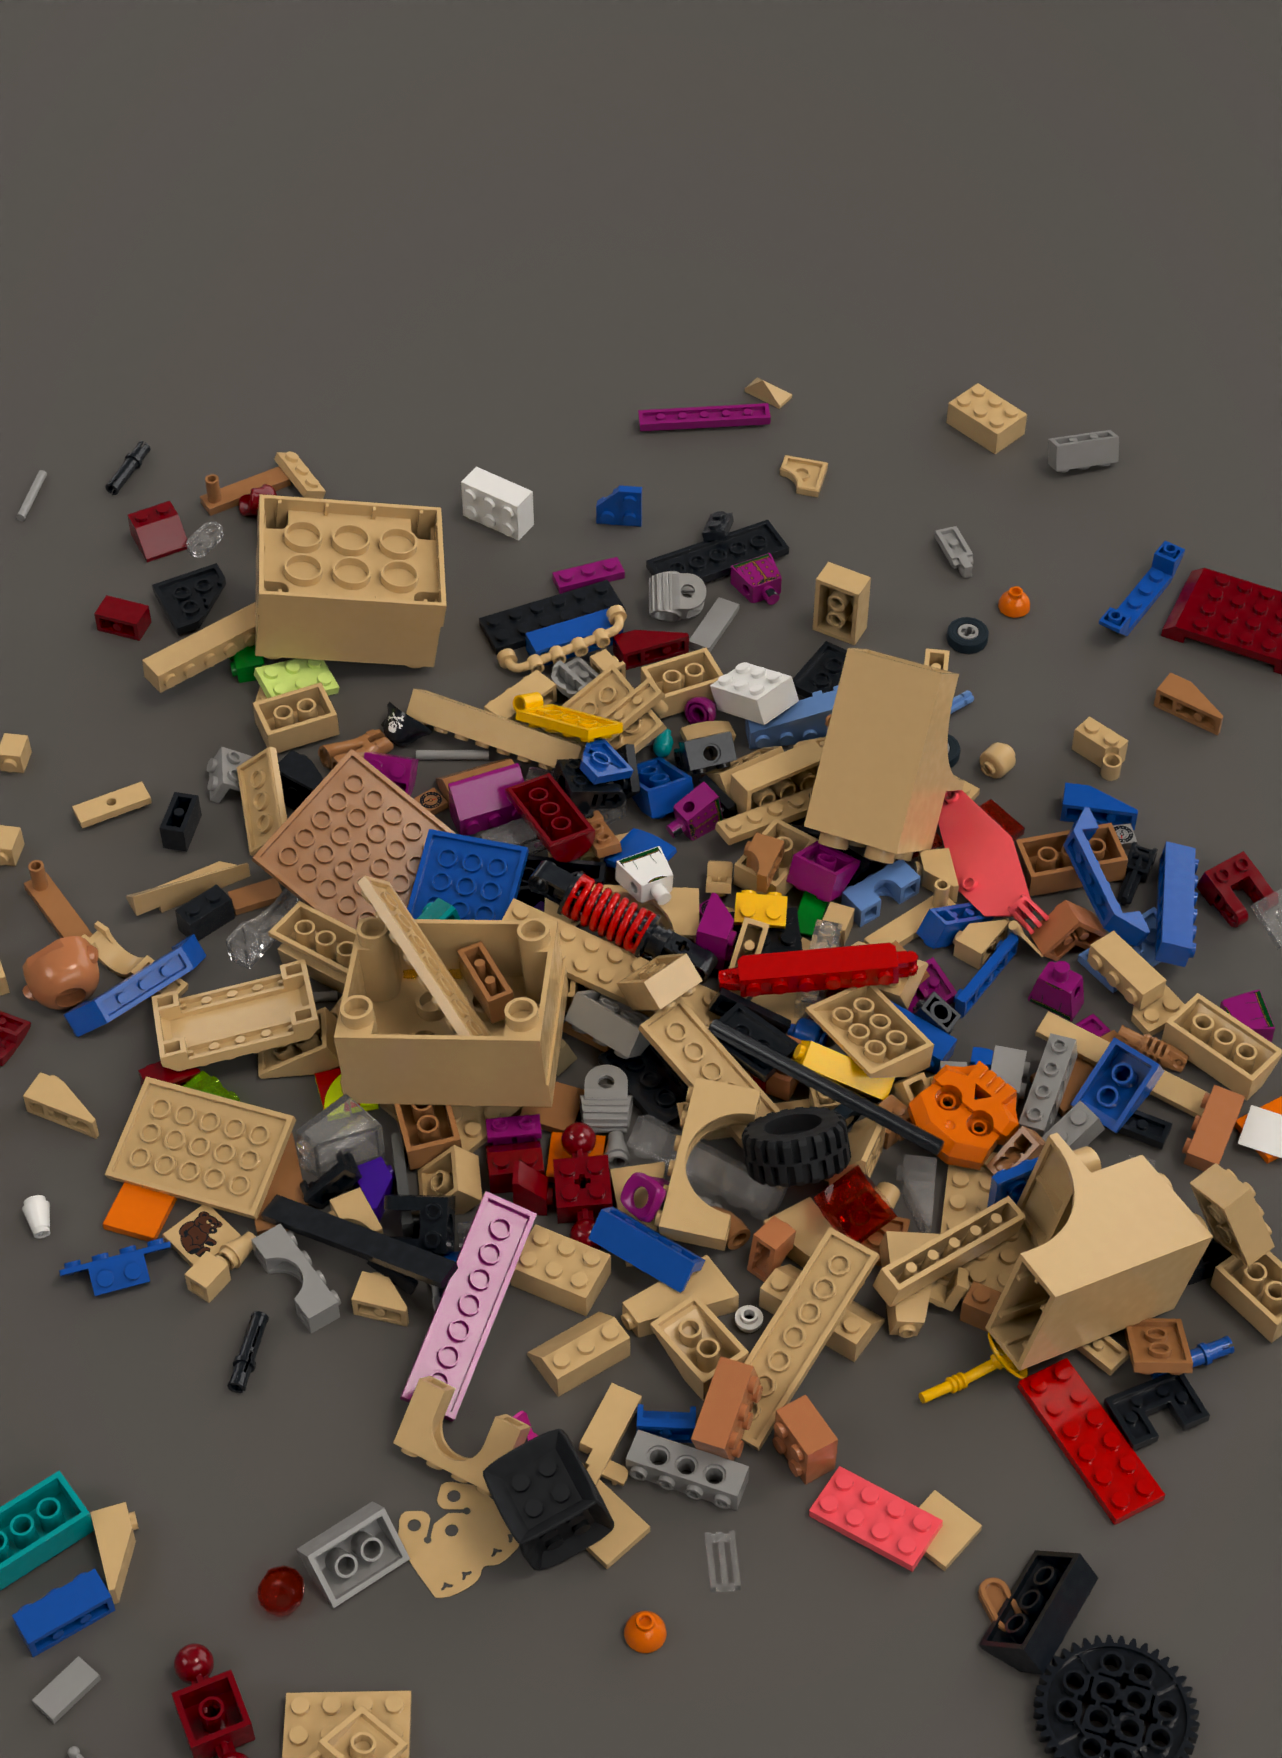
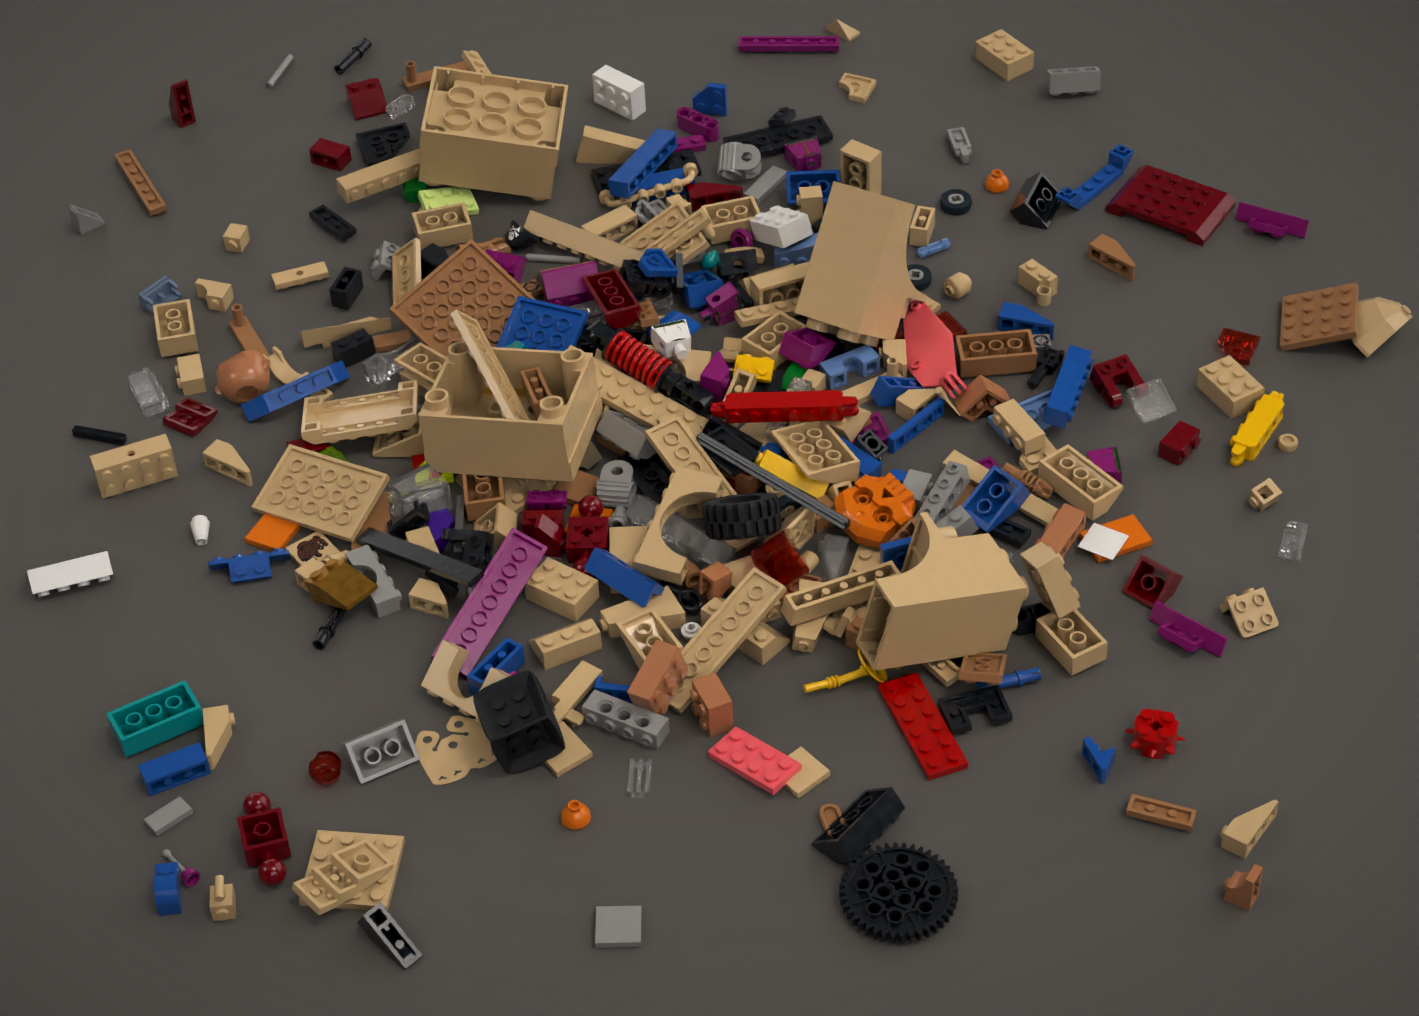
camera: 10 degrees right, 5 degrees down
(143, 720) = (332, 222): none -> black plate
(253, 1293) = (339, 585): none -> pearl gold slope
(498, 585) = (605, 147): none -> tan slope
(499, 1397) = (506, 657): none -> blue brick
(551, 609) = (642, 163): none -> blue brick
(556, 718) = (616, 231): yellow hinge -> none
(608, 542) = (697, 124): none -> magenta beam
(655, 1191) = (635, 541): magenta piece -> none
(660, 982) = (664, 405): tan brick -> none
(737, 1269) = (688, 599): none -> black piece
(764, 857) = (763, 334): medium nougat arch -> none
(781, 628) = (810, 178): none -> blue slope
(783, 652) = (810, 202): none -> tan brick
(1059, 990) = (966, 437): magenta torso -> none
(1072, 630) = (1036, 202): none -> black slope
(1128, 925) = (1026, 397): blue slope -> none

